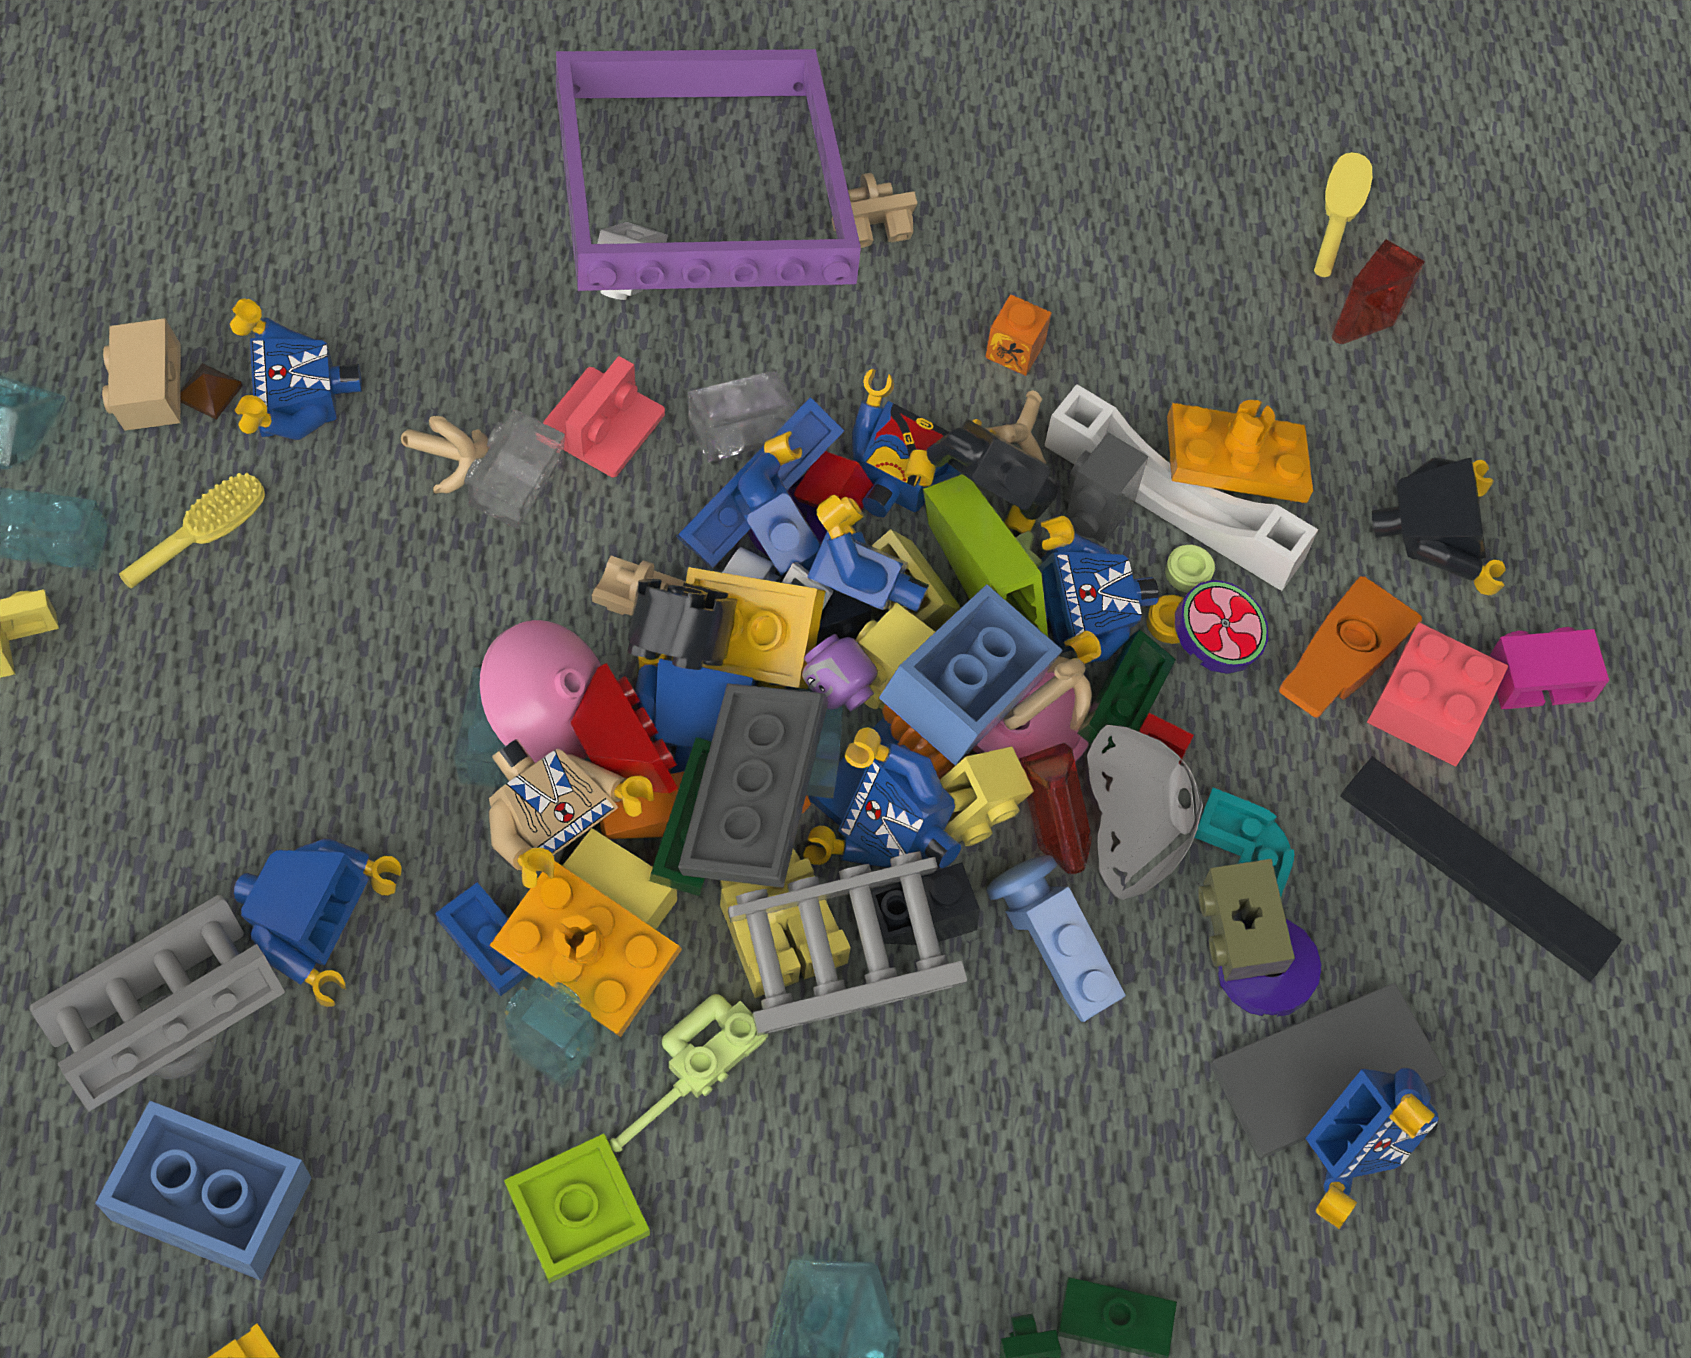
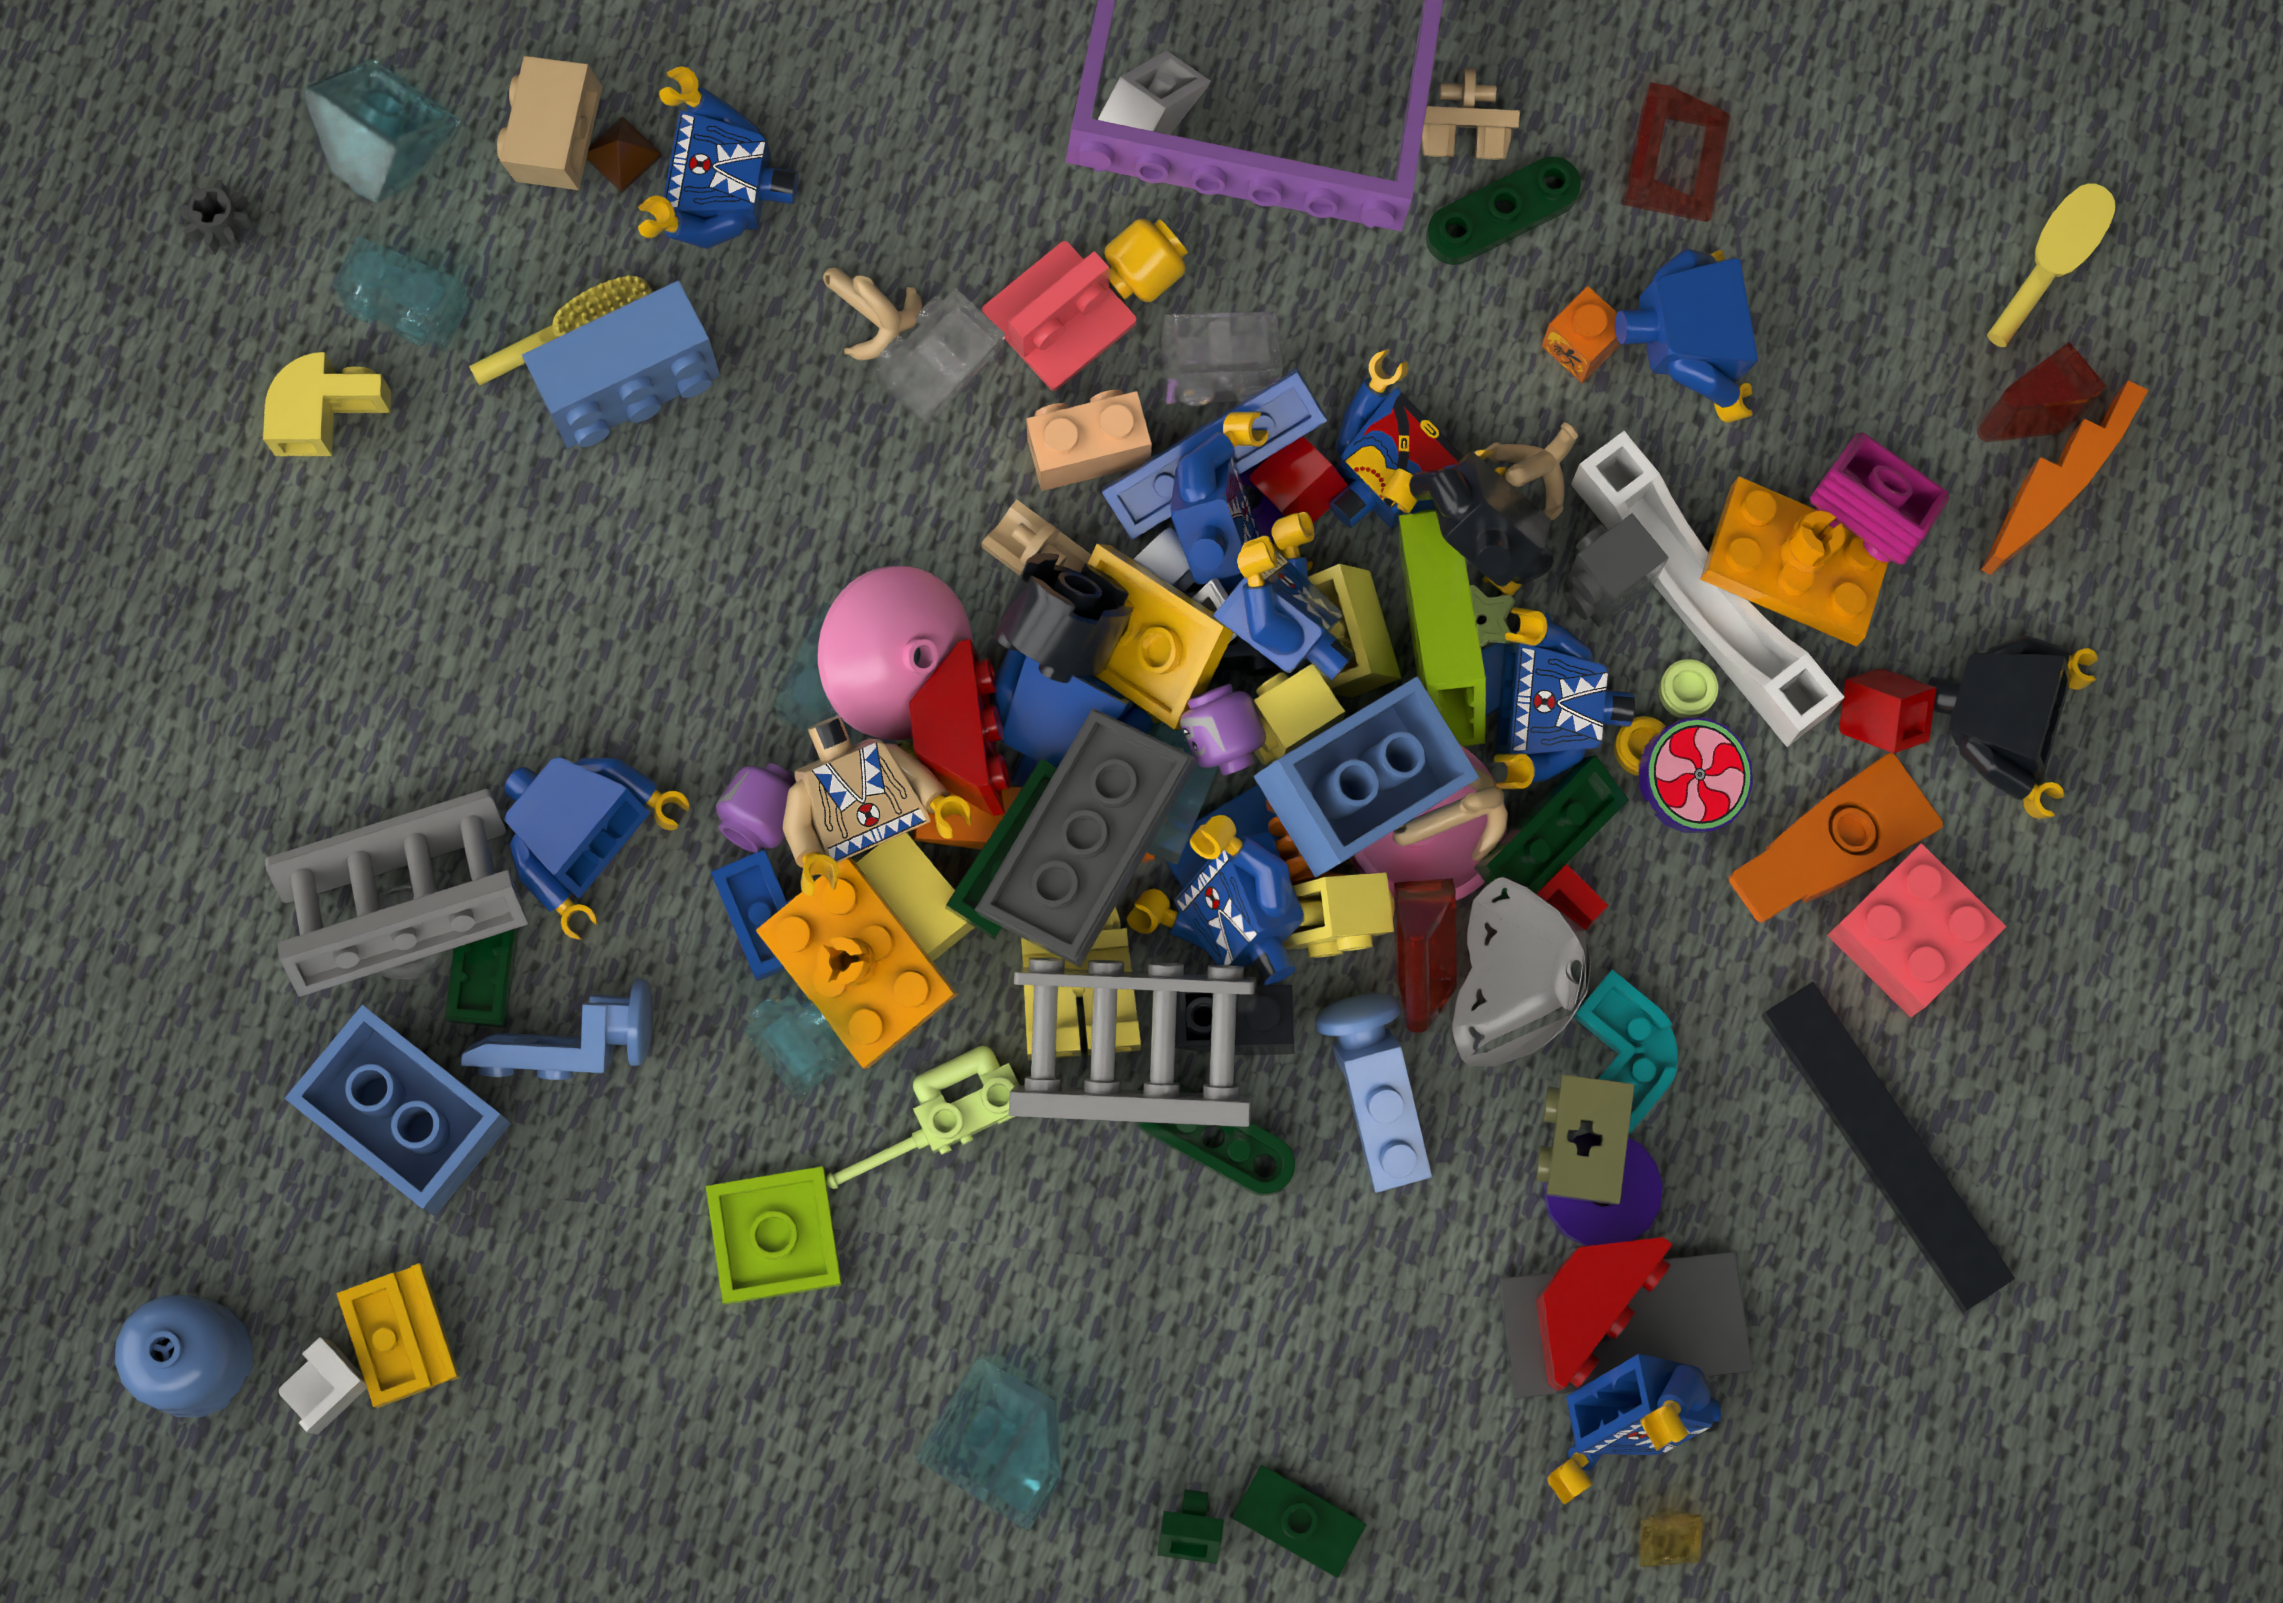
camera: 20 degrees right, 15 degrees up
(251, 533) = (623, 366): none -> medium blue brick
(253, 1058) = (482, 981): none -> dark green plate
(375, 1064) = (605, 1023): none -> medium blue piece
(461, 850) = (755, 807): none -> medium lavender head
(654, 500) = (1088, 439): none -> light nougat brick
(660, 362) = (1145, 260): none -> yellow head
(917, 282) = (1489, 228): none -> dark green plate
(956, 1028) = (1236, 1154): none -> dark green plate
(1027, 229) = (1641, 188): none -> clear red tile
(1106, 304) = (1697, 328): none -> blue torso
(1288, 390) = (1880, 499): none -> dark pink brick
(1298, 1050) = (1592, 1300): none -> red slope
(1349, 542) = (1887, 710): none -> red panel
(1408, 351) = (2053, 487): none -> orange slope
(1435, 1235) = (1670, 1538): none -> clear yellow slope
(1557, 661) = (2076, 934): dark pink piece -> none

